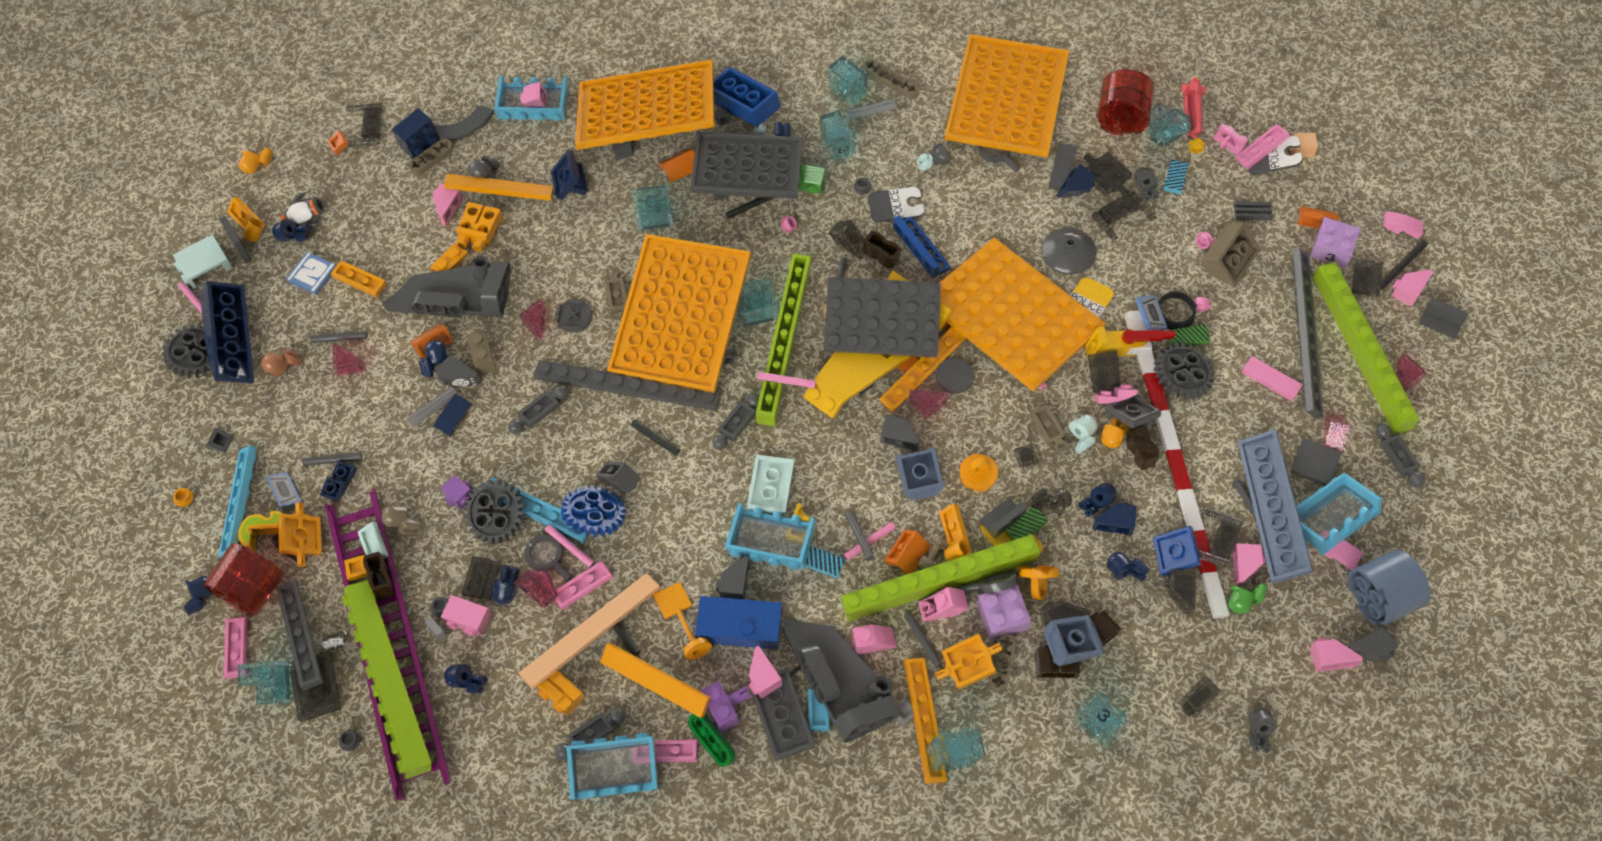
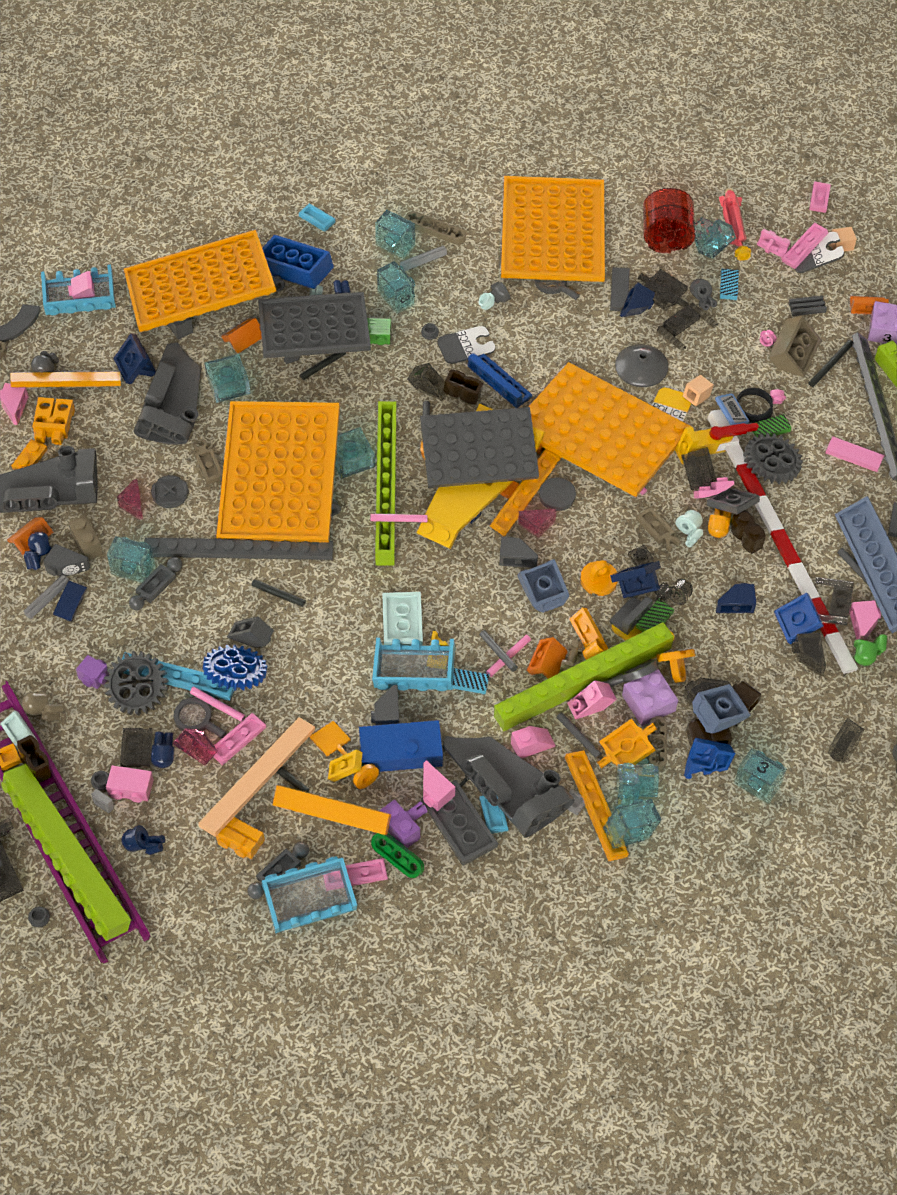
camera: 15 degrees left, 5 degrees down
(517, 381) = (130, 559): none -> clear light blue brick
(595, 220) = (171, 399): none -> dark grey panel
(678, 634) = (345, 765): none -> yellow plate
(736, 421) = (355, 566): dark grey plate -> none
(777, 53) = (317, 217): none -> medium azure tile
(789, 224) = (365, 376): bright pink plate -> none
(969, 703) = (635, 782): none -> clear light blue brick
(1016, 481) = (637, 579): none -> dark blue bracket
(1051, 688) = (708, 757): none -> blue slope
(1100, 497) = (718, 582): dark blue piece -> none
(1120, 286) = (698, 390): none -> light nougat brick
(1122, 566) = (752, 640): dark blue piece -> none
(1264, 277) = (831, 363): none -> pearl dark grey bar
(1288, 96) = (819, 197): none -> bright pink plate

